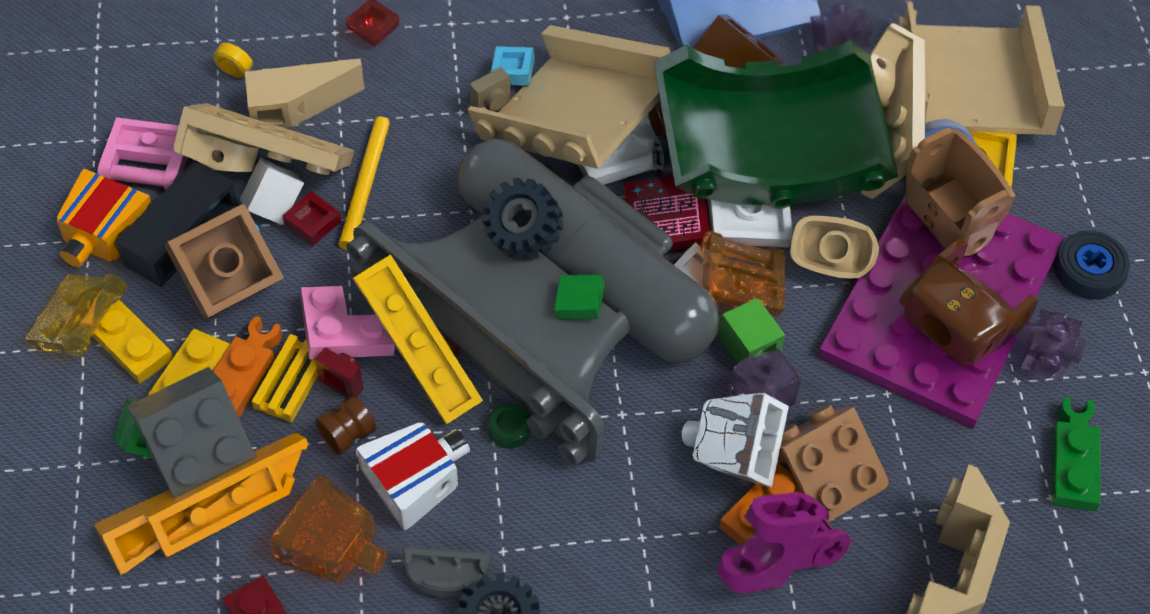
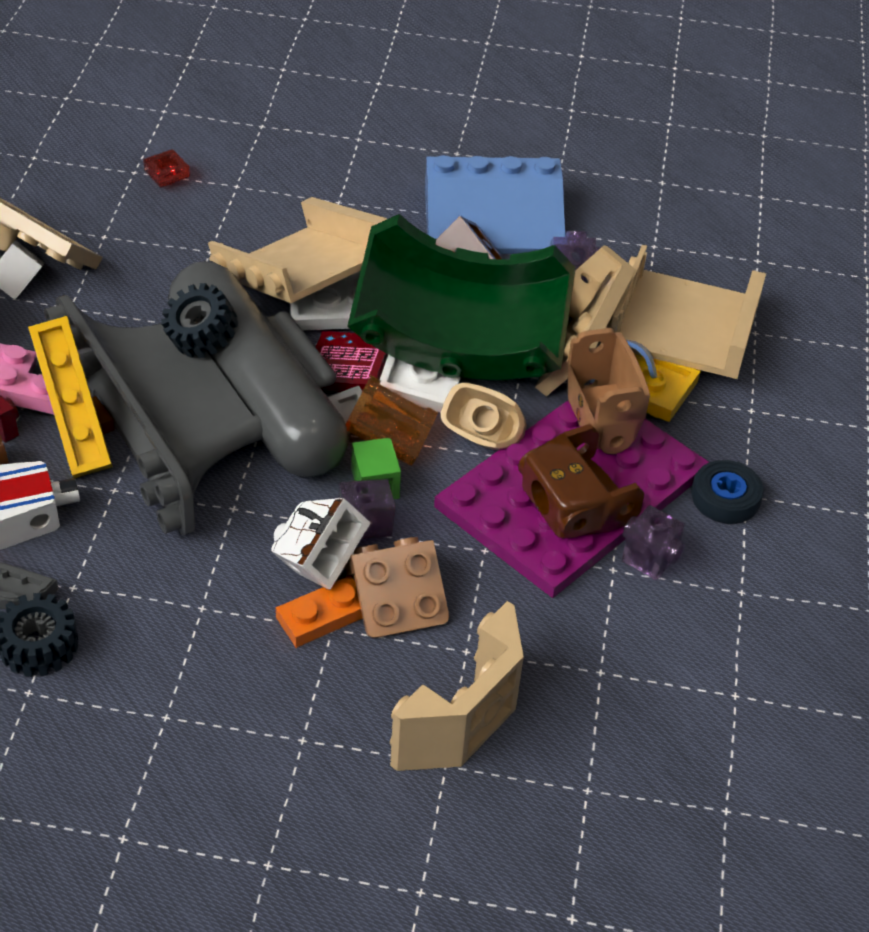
camera: 15 degrees right, 10 degrees down
(232, 60) = (34, 170): yellow tile -> none
(300, 92) = (79, 204): tan slope -> none
(312, 218) = (36, 296): dark red plate -> none
(364, 180) = (108, 273): yellow bar -> none
(491, 90) = (239, 234): dark tan plate -> none
(508, 426) = (124, 491): dark green tile -> none
(517, 63) = (269, 224): medium azure plate -> none
(579, 296) = (222, 392): green tile -> none
(788, 537) = (321, 630): magenta piece -> none
(1076, 459) = (638, 644): green plate -> none

